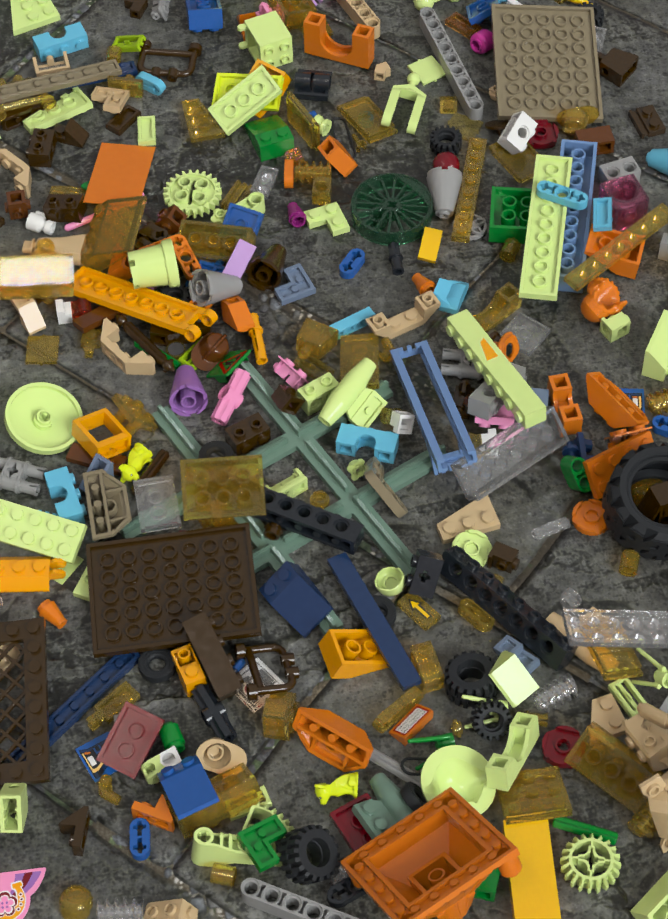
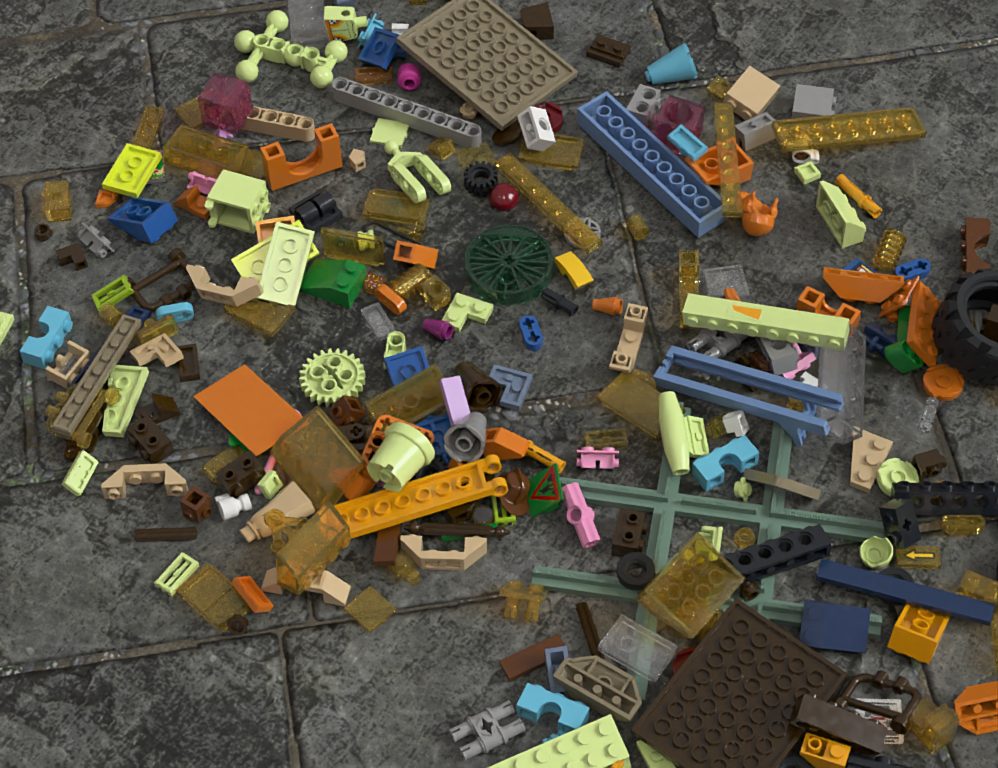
camera: 45 degrees left, 0 degrees up
(42, 418) = (455, 661): yellowish green dish -> none
(71, 310) = (357, 555): leg -> none
(75, 226) = (270, 484): none -> yellowish green tile
(108, 447) = (517, 646): light orange window -> none
(136, 460) = (569, 628): neon yellow animal -> none
(146, 130) = (220, 356): yellowish green tile -> none
(187, 392) = (540, 538): medium lavender cone -> none
(196, 97) = (245, 290): none -> tan slope
(218, 215) = (378, 383): yellowish green plate -> none
(234, 194) = (364, 339): clear yellow tile -> none
(287, 399) = (629, 479): dark brown brick -> none
(315, 339) = (583, 415): clear yellow torso -> none
(317, 393) = (641, 455): yellowish green brick -> none
(353, 322) = (592, 380): medium azure piece -> none
(444, 189) = (534, 215): light grey cone -> none
(450, 294) = (639, 293): medium azure slope -> none
(509, 214) = (614, 194): green slope -> none
(545, 232) = (657, 185): yellowish green plate -> none
(565, 201) = (652, 144): medium azure beam -> none
(577, 118) = (563, 87): clear yellow piece -> none
(600, 134) = (592, 88): reddish brown brick -> none
(615, 326) = (784, 225): yellowish green brick -> none

